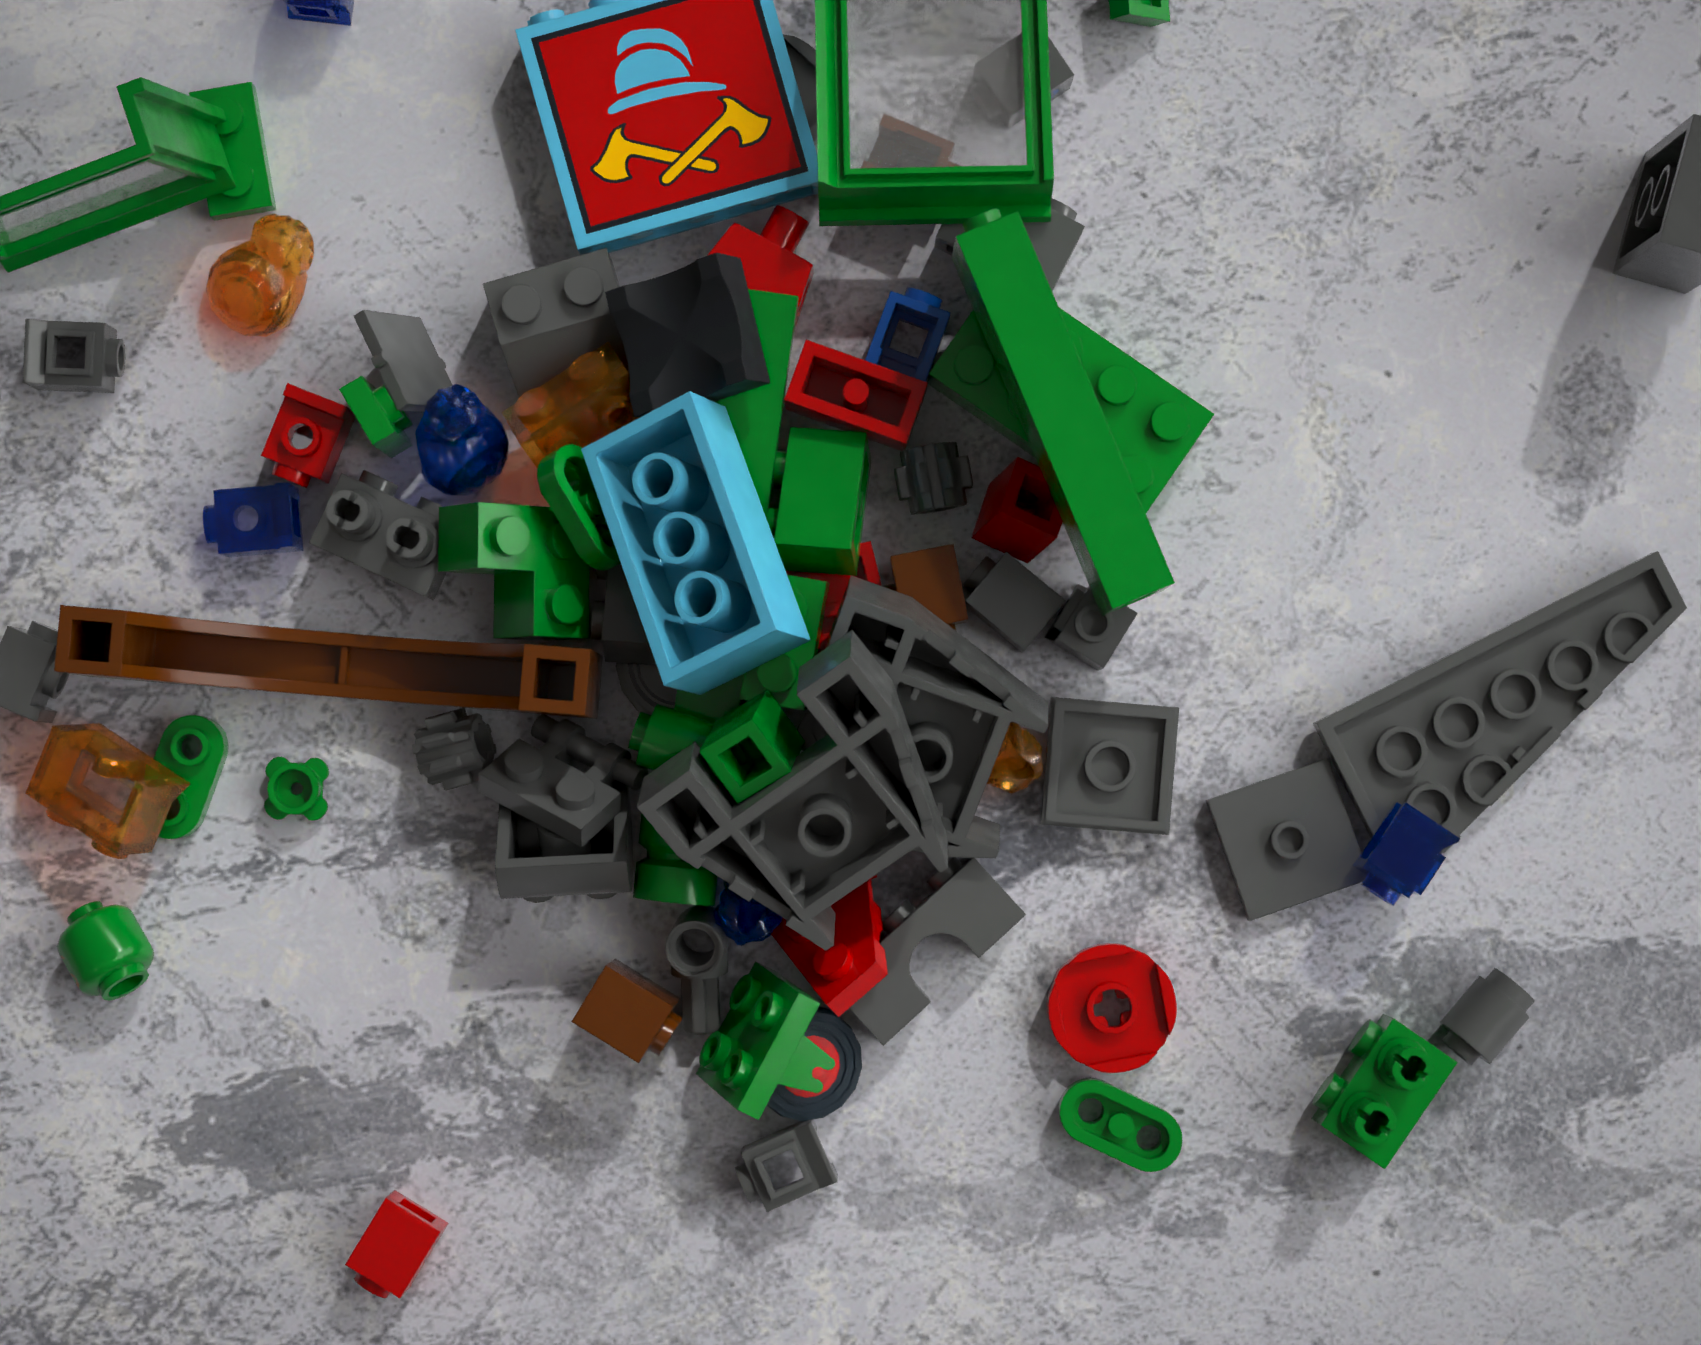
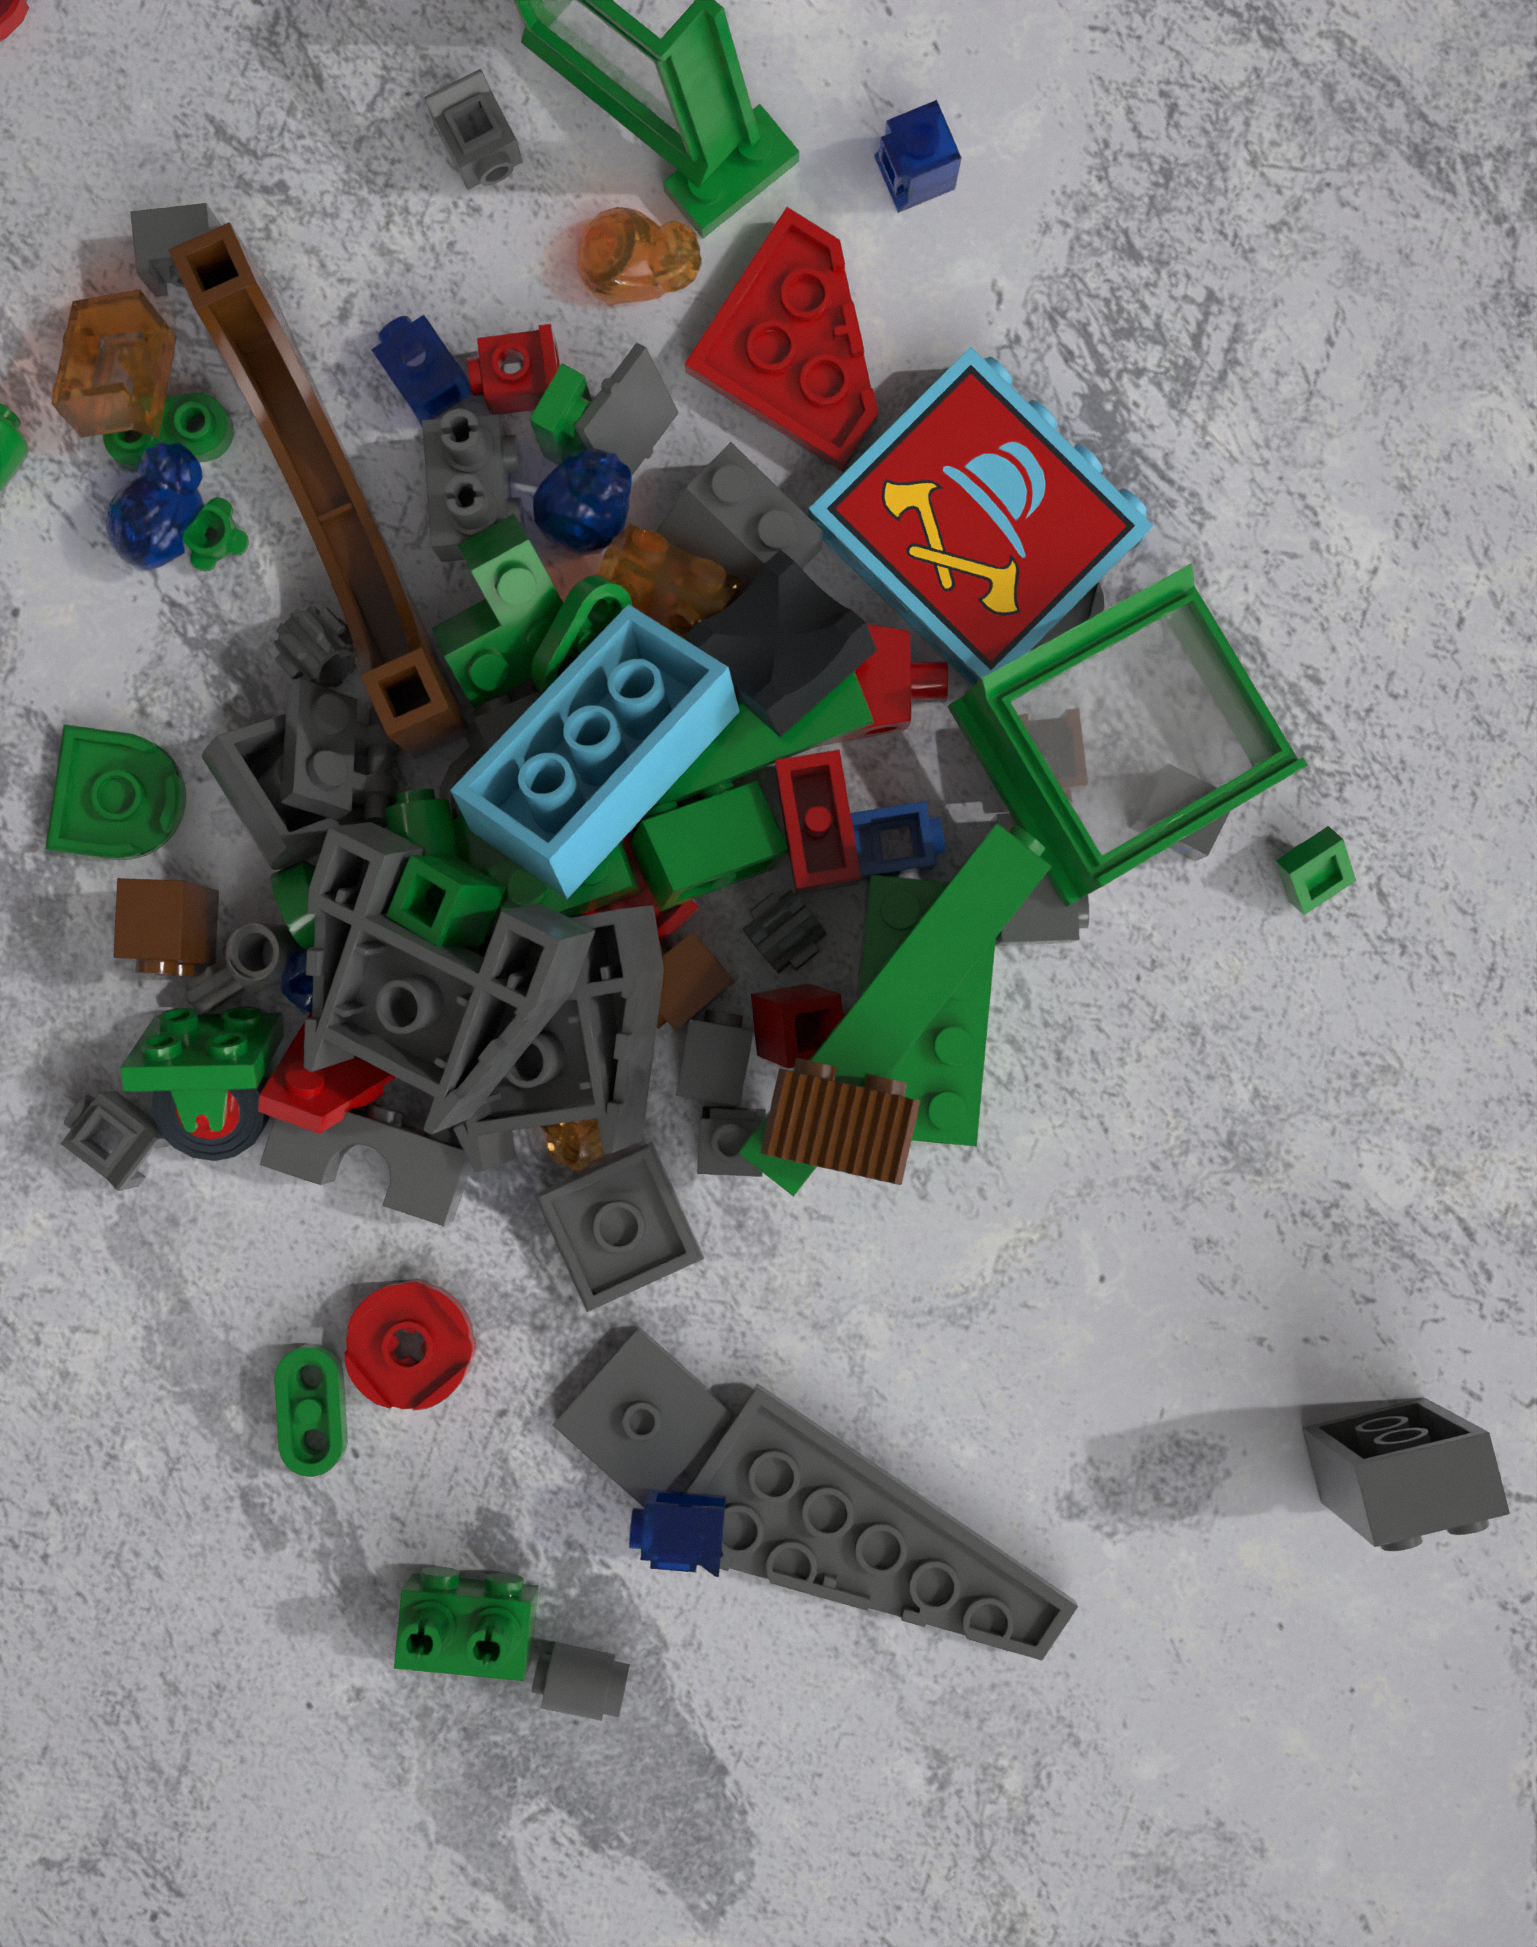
camera: 65 degrees right, 0 degrees up
(252, 821) = (153, 511): none -> clear blue hair
(420, 181) = (793, 344): none -> red plate
(480, 1003) = (113, 795): none -> green tile
(1137, 506) = (839, 1123): none -> reddish brown brick

